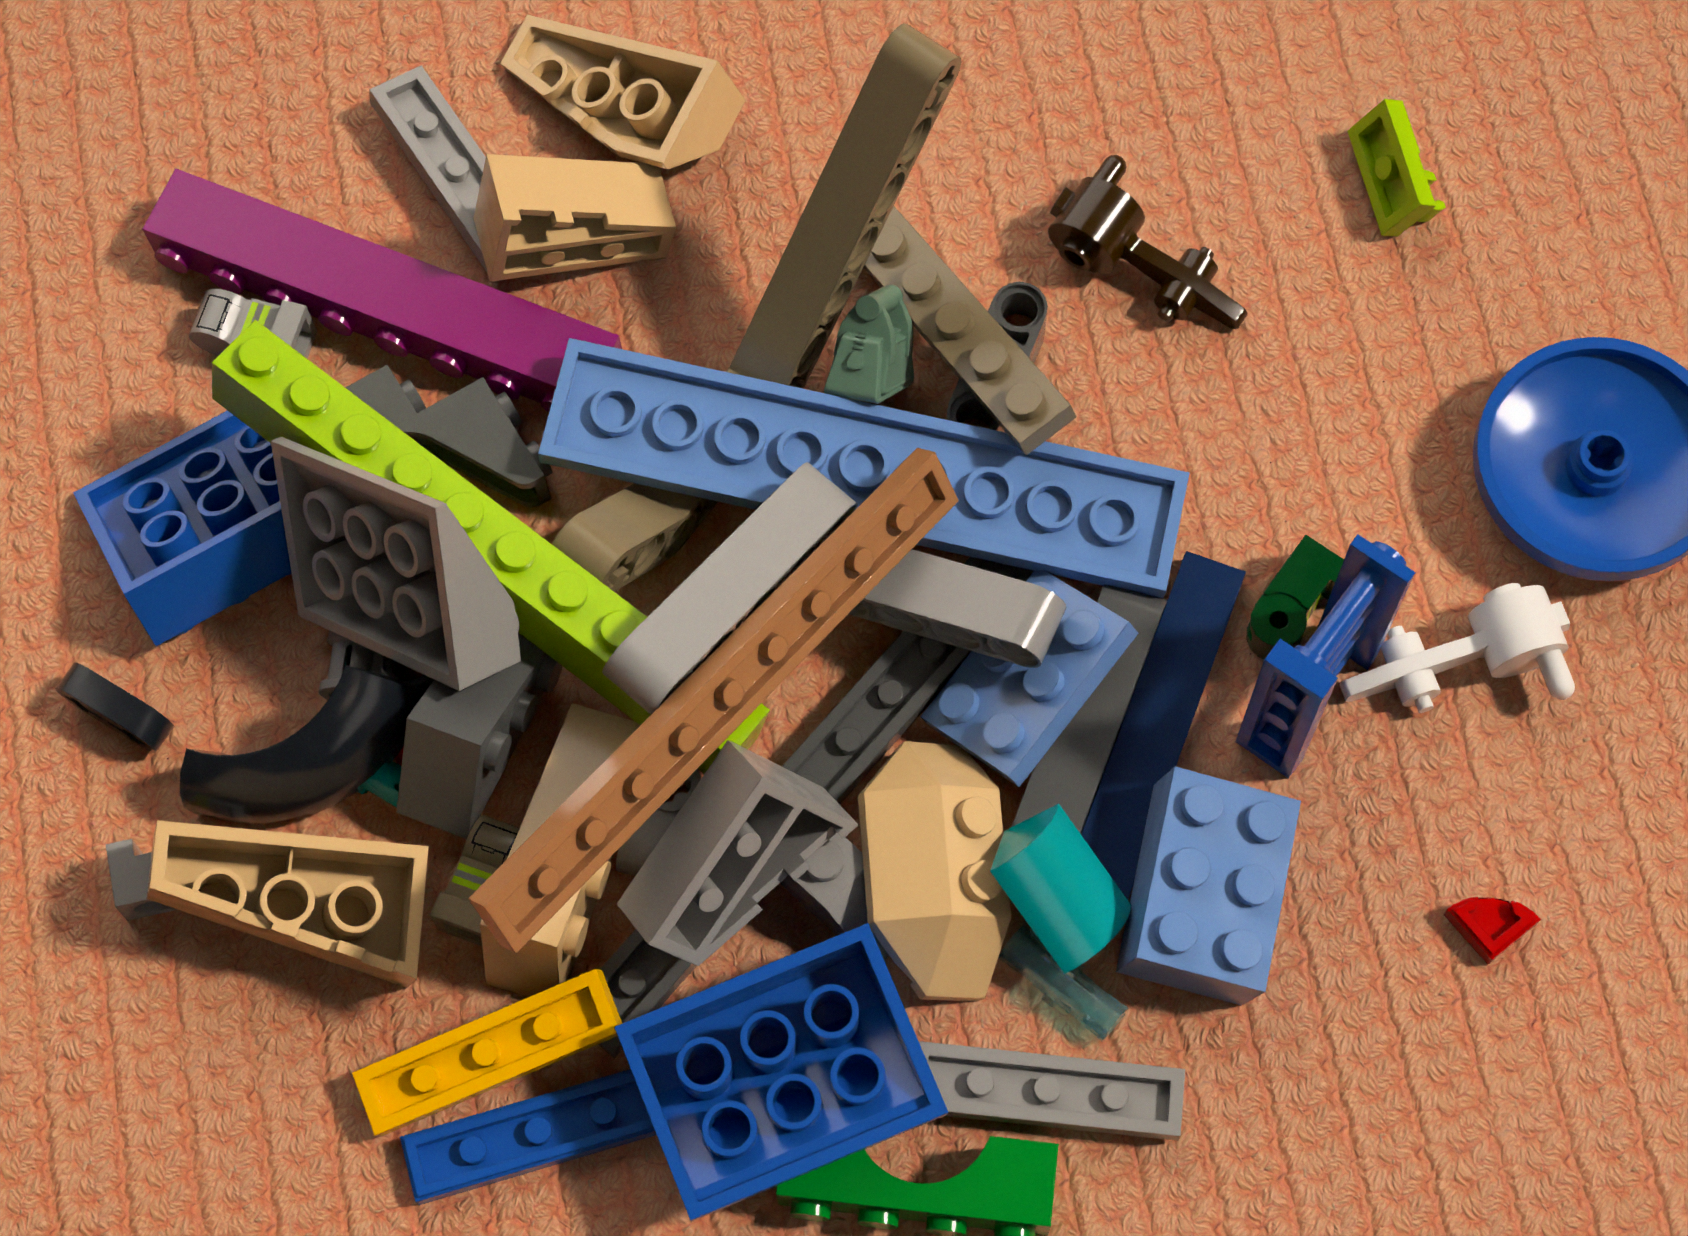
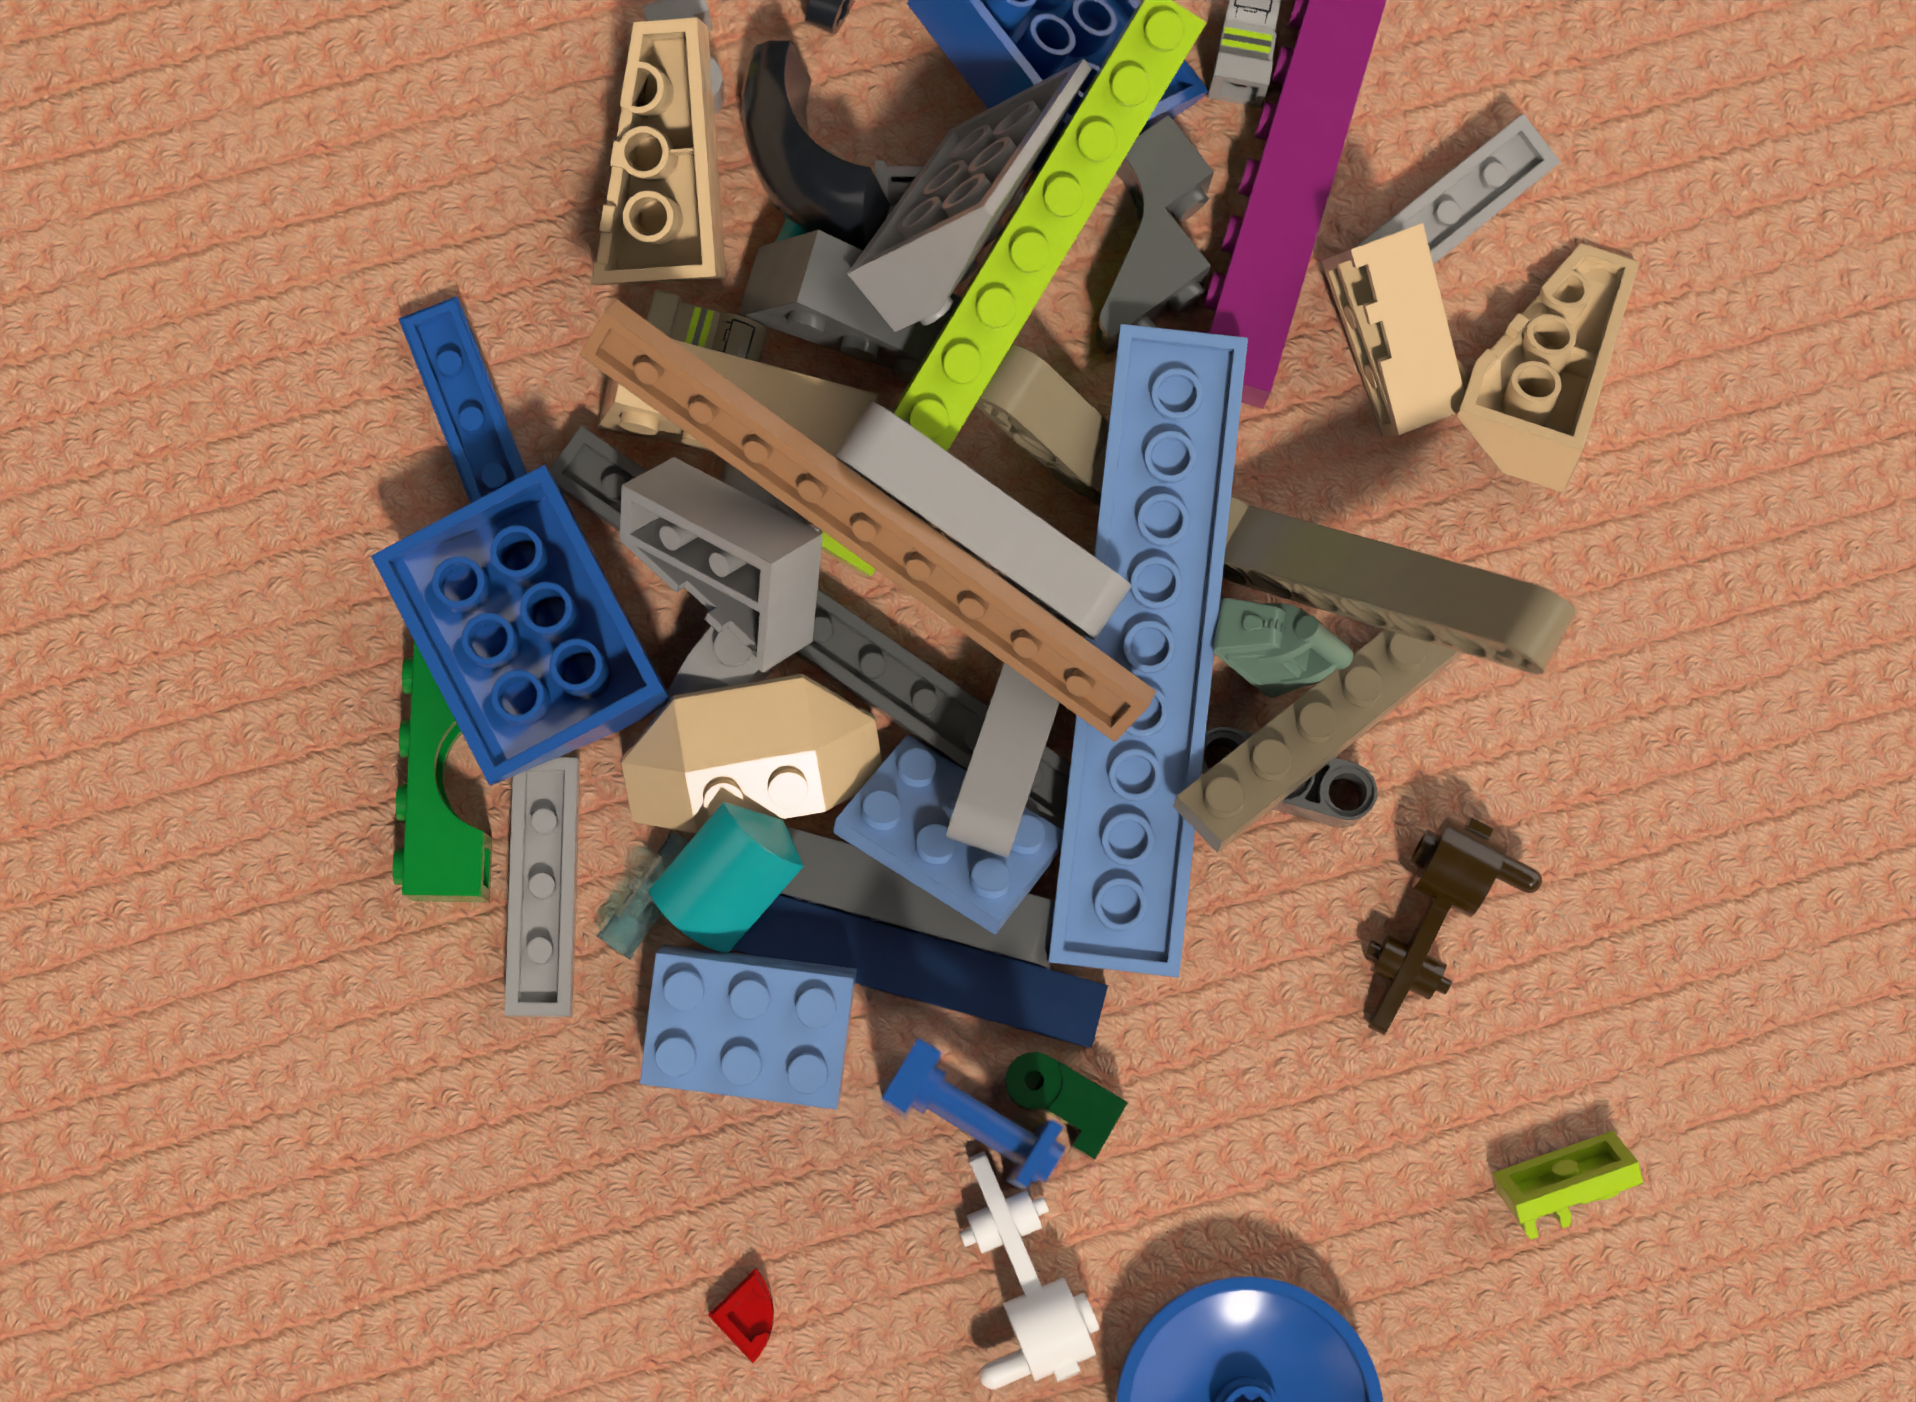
camera: 75 degrees right, 10 degrees up
(488, 1052) = (534, 363): yellow plate -> none

